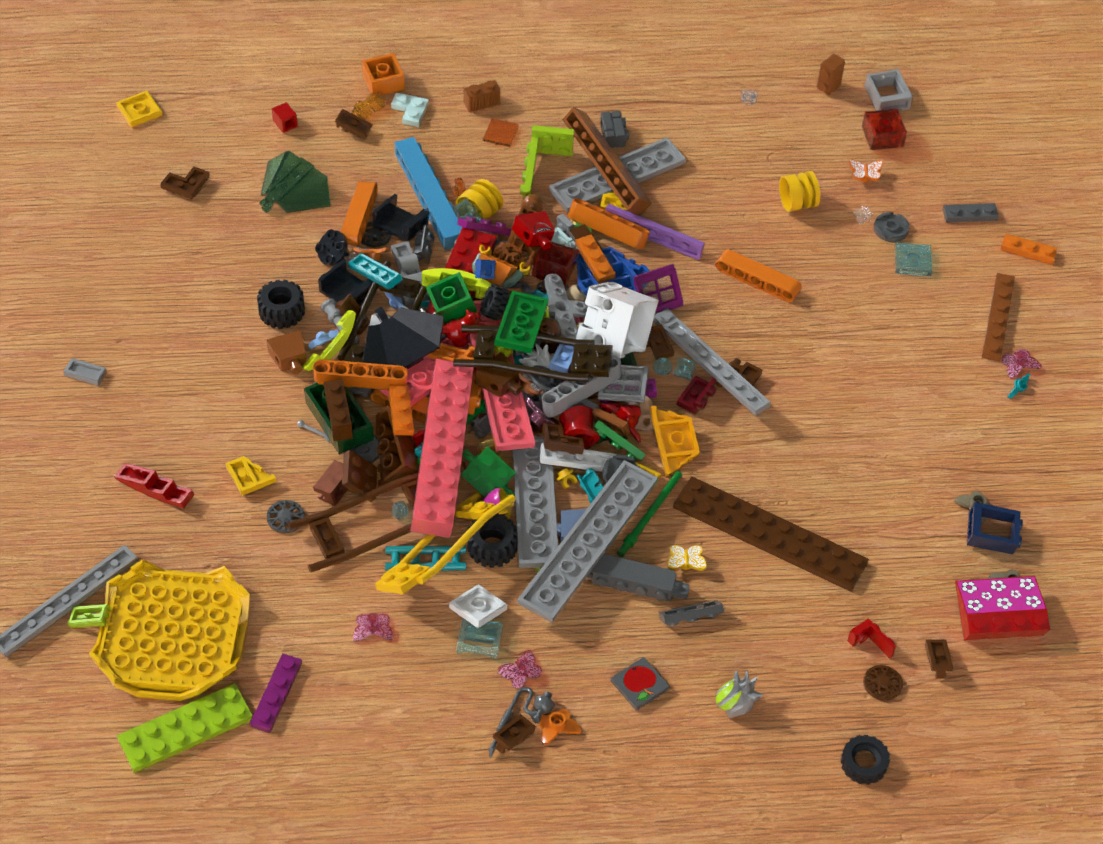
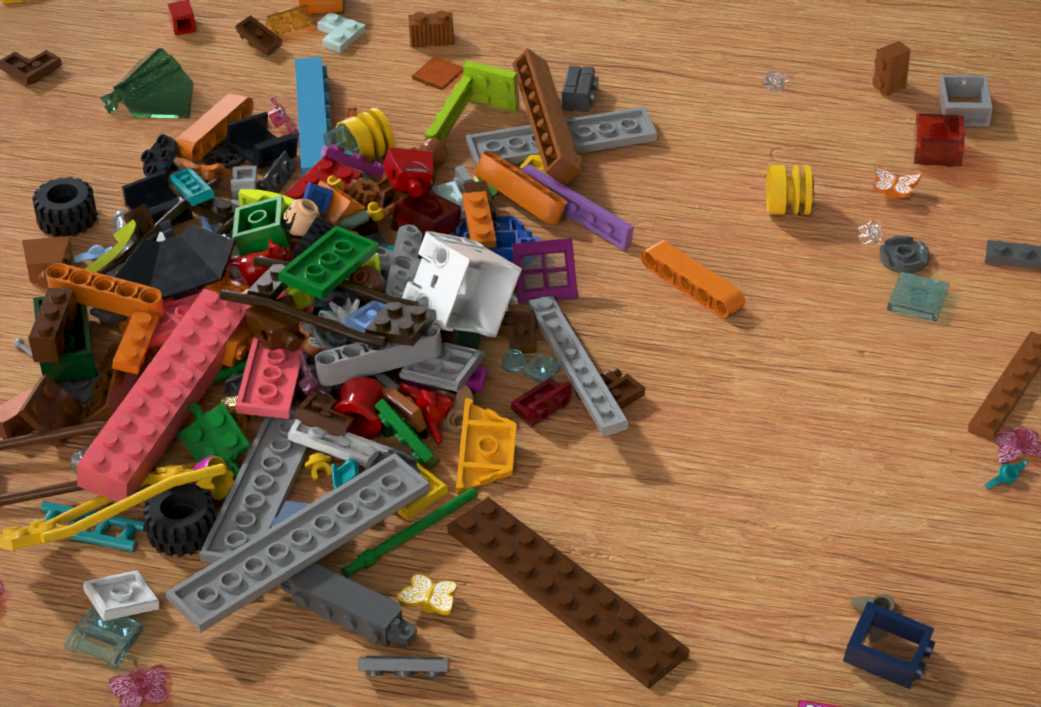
camera: 20 degrees right, 10 degrees down
(405, 195) = (279, 117): none -> clear pink animal
(481, 287) = (300, 216): none -> light nougat head

